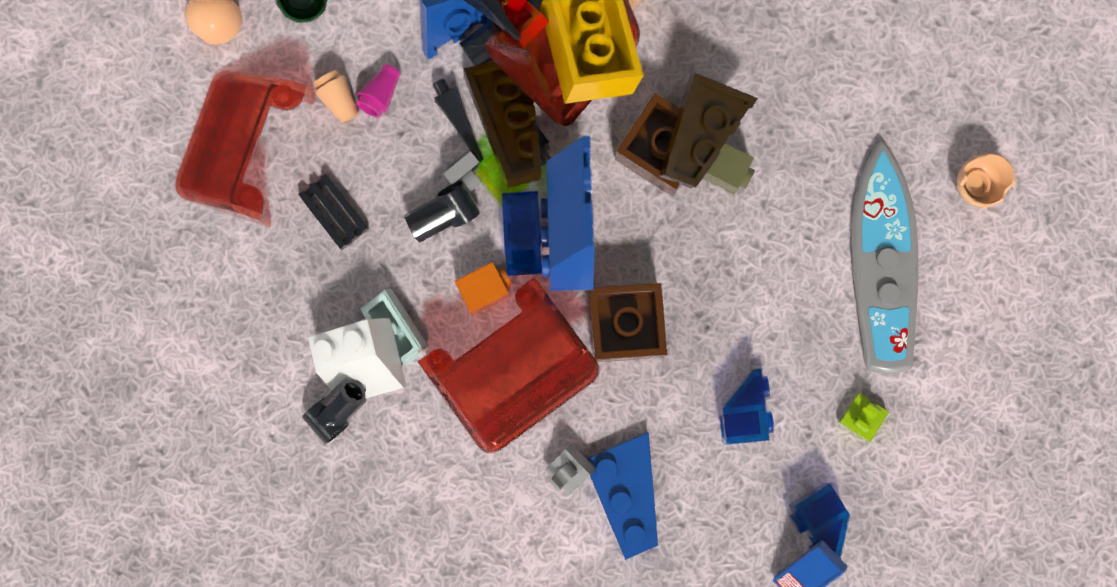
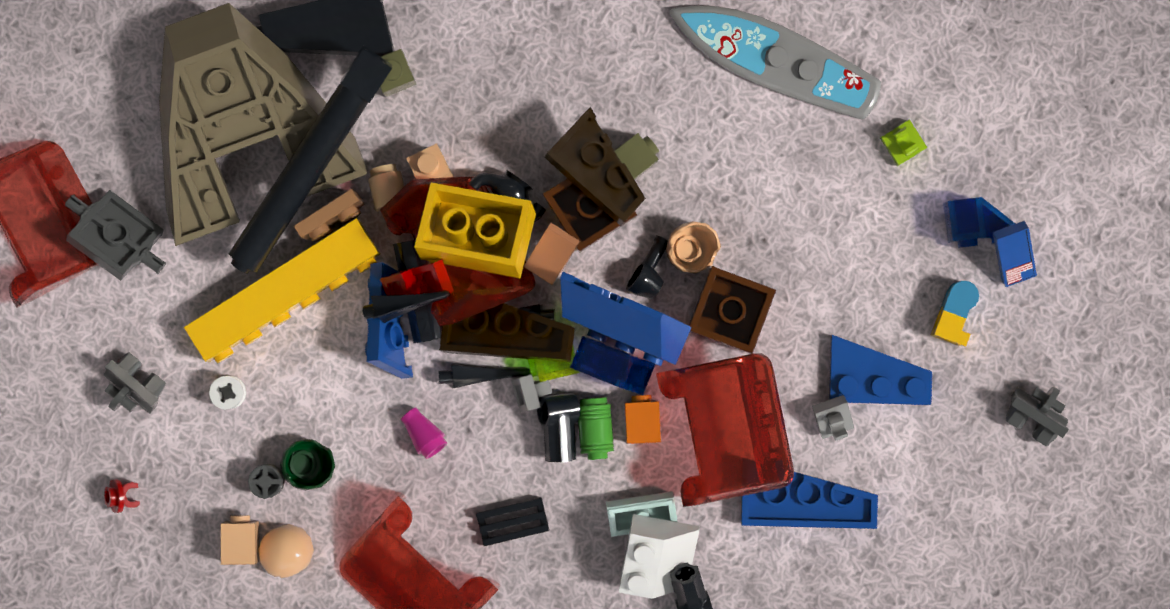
camera: 70 degrees left, 5 degrees up
(336, 95) = (410, 473): light nougat cone -> none
(456, 247) = (595, 428): none -> bright green head
(476, 485) = (811, 504): none -> blue wing
(604, 125) = (551, 254): none -> nougat slope
(618, 232) = (645, 280): none -> black bar
(649, 65) = (506, 185): none -> black piece
(670, 260) = (693, 247): none -> light nougat hair
(725, 540) = (954, 311): none -> leg
(744, 412) = (853, 244): clear blue slope -> none

